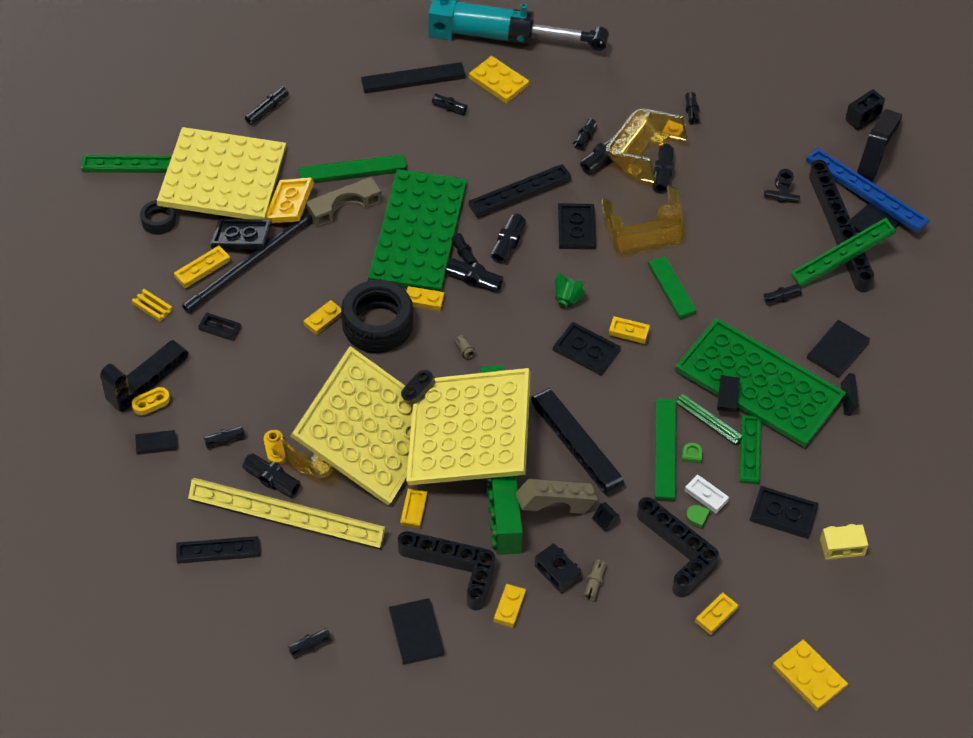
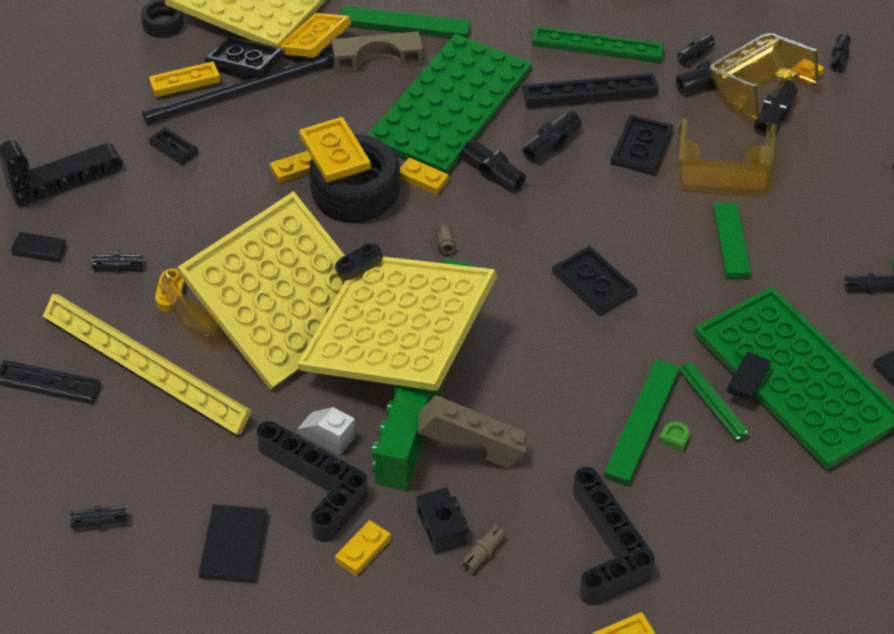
camera: 20 degrees right, 5 degrees down
(150, 401) = (54, 202): yellow plate -> none
(154, 303) = (95, 98): yellow tile -> none
(271, 474) = (149, 316): black piece -> none
(359, 299) = (334, 149): none -> yellow plate
(413, 508) = (299, 402): yellow tile -> none
(445, 523) = (329, 428): none -> white slope
(463, 249) = (493, 134): black pin -> none
(508, 149) = (597, 44): none -> green tile
(568, 290) = (597, 210): green brick -> none
(577, 441) = (534, 382): black beam -> none
(605, 516) = (530, 477): black tile -> none
(629, 330) = (655, 272): yellow plate -> none
(697, 515) = (650, 510): bright green tile -> none
(706, 494) = (672, 488): white plate -> none
(750, 450) = (752, 453): green tile -> none
(784, 512) = (767, 539): black tile -> none
(844, 541) = (832, 598): light yellow brick -> none

